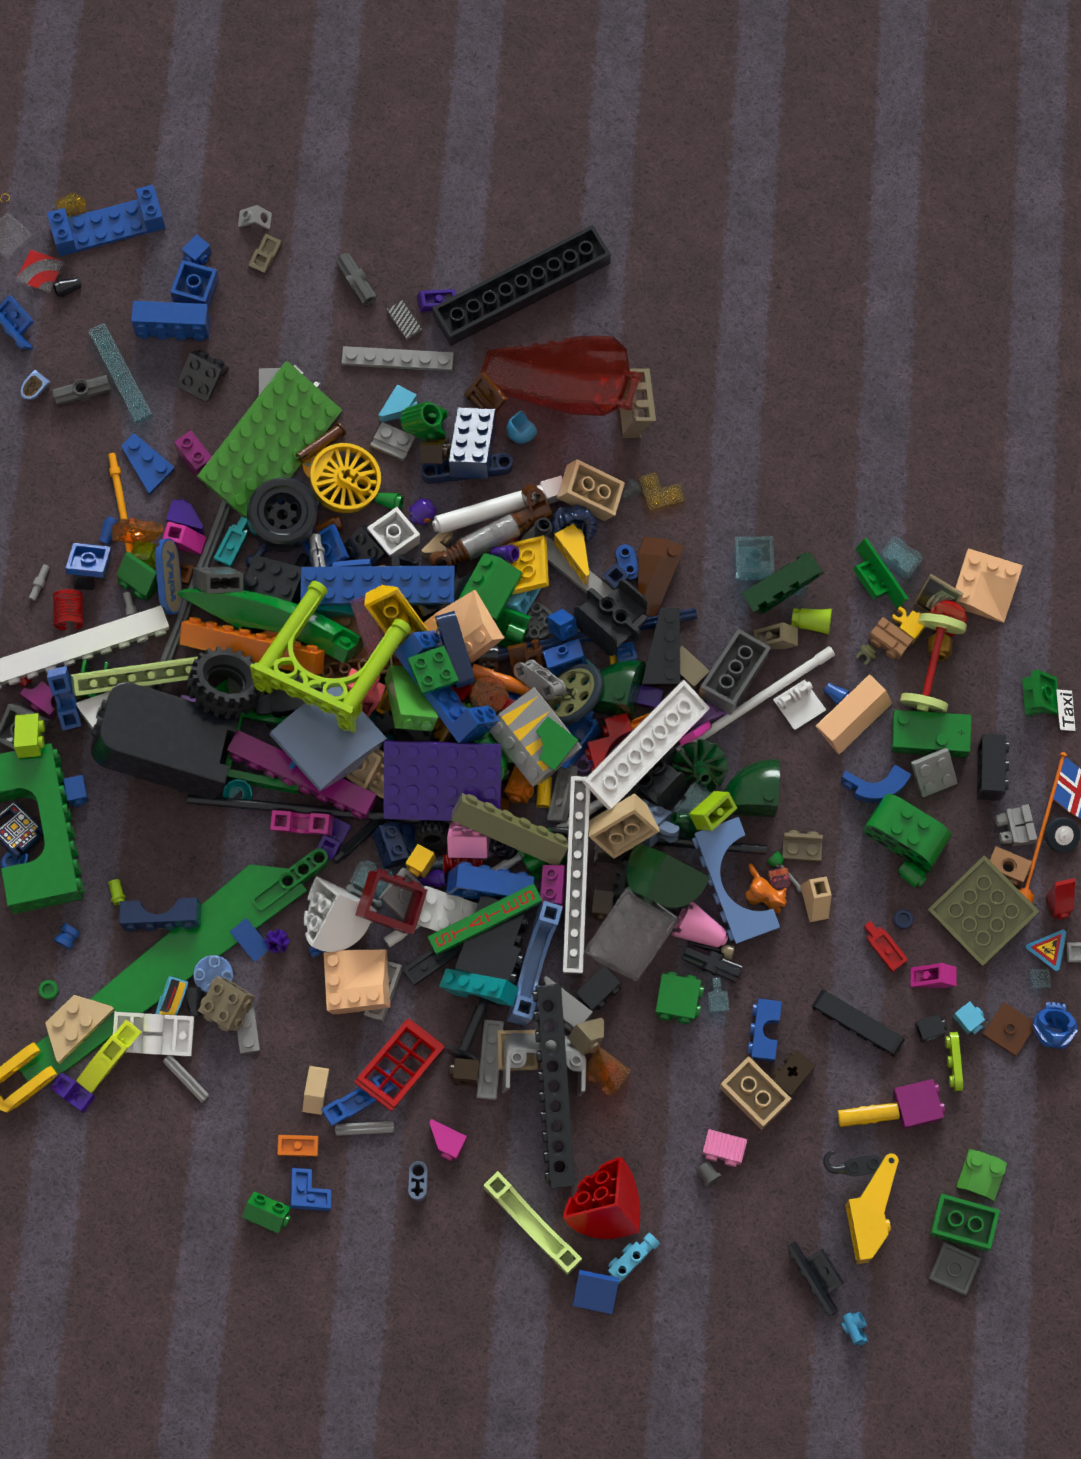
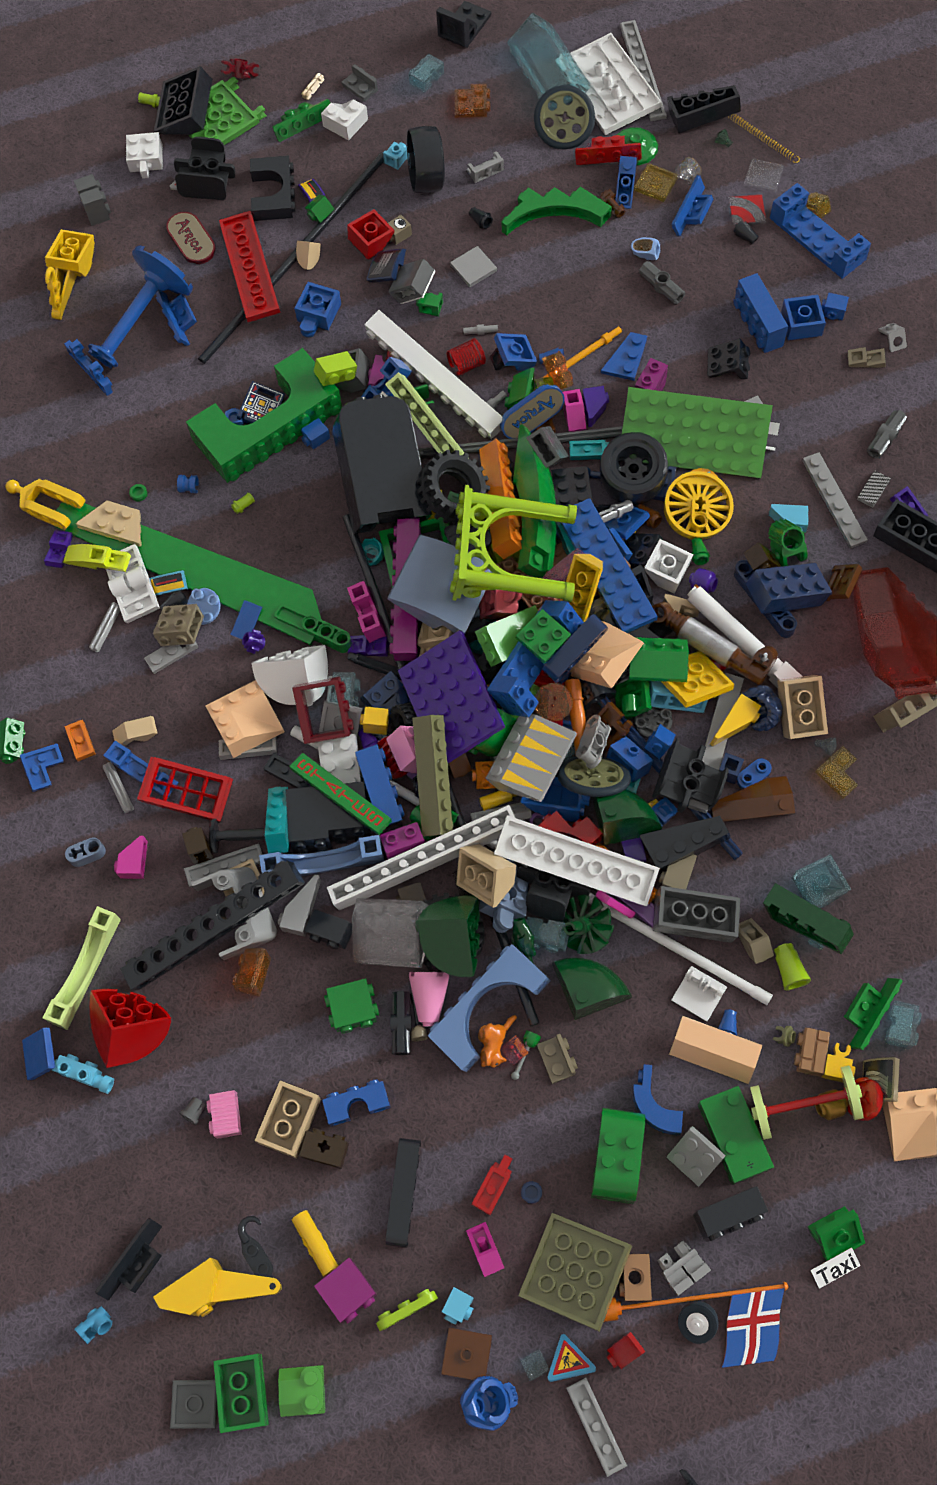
camera: 70 degrees right, 5 degrees down
(120, 373) = (693, 303): clear light blue plate -> none
(184, 914) = (243, 556): dark blue arch -> none
(321, 442) = (722, 474): reddish brown pin -> none
(392, 441) = (755, 529): light grey plate -> none
(508, 553) = (699, 661): dark purple cone -> none
(521, 429) = (828, 624): dark azure hair -> none
(542, 527) = (741, 681): black cone -> none
(556, 743) = (532, 775): green tile -> none
(587, 1035) = (275, 936): dark tan slope -> none
(712, 810) = (541, 950): lime brick -> none
(718, 999) = (368, 1044): clear light blue plate -> none
(817, 898) = (509, 1095): tan slope -> none
(912, 874) = (581, 1181): green brick -> none
(931, 1028) = (430, 1269): black brick -> none

